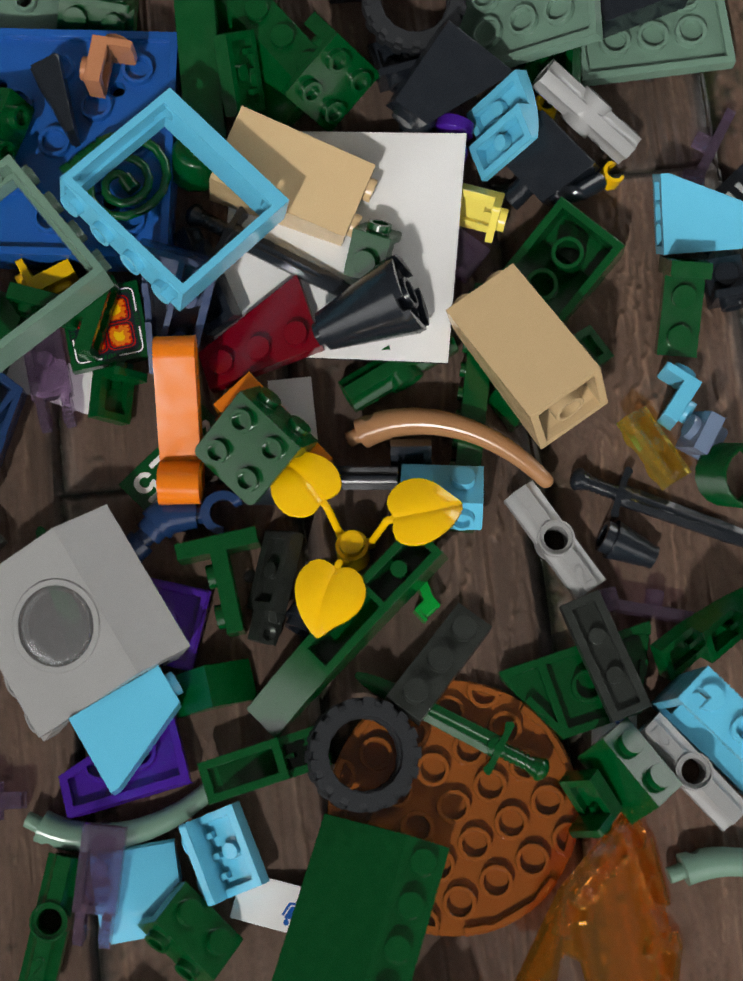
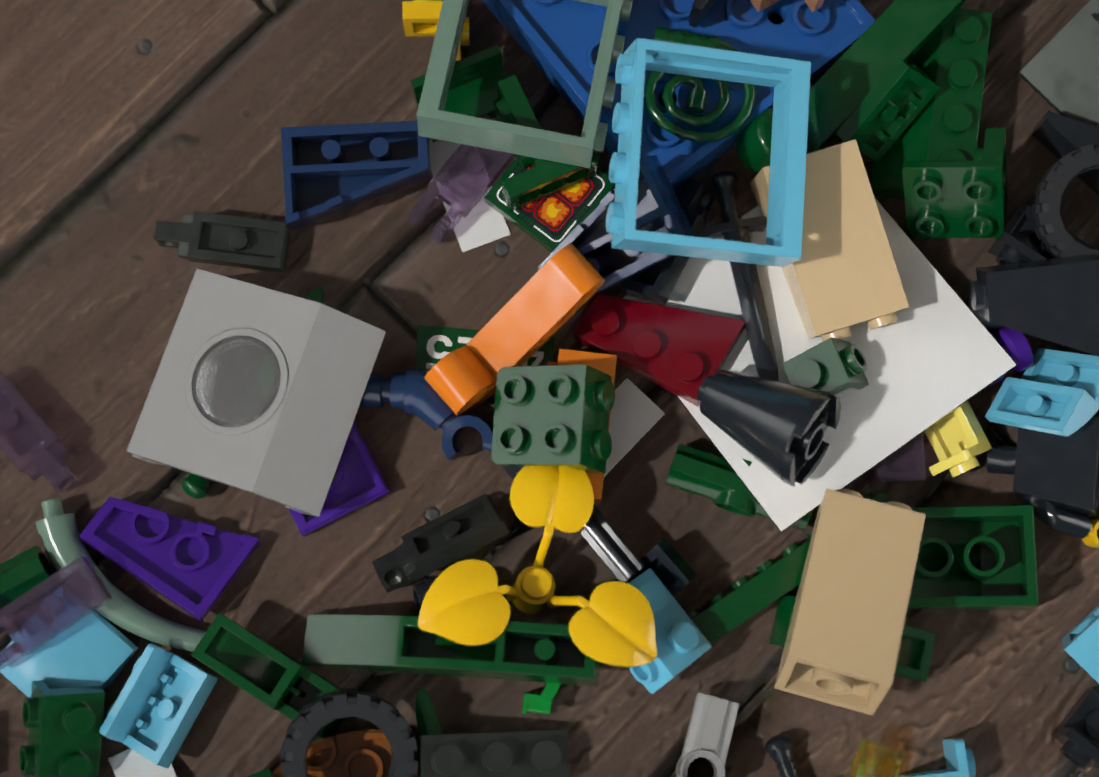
camera: 45 degrees right, 0 degrees up
(54, 279) = (549, 109): yellow bracket -> none
(113, 393) = (496, 250): dark green bracket -> none
(127, 725) = (201, 520): medium azure slope -> none
(215, 687) = (302, 568): dark green slope -> none
(220, 572) = (412, 487): dark green bracket -> none
(426, 421) = (701, 546): medium nougat animal -> none
(681, 305) = (1031, 705): dark green bracket -> none

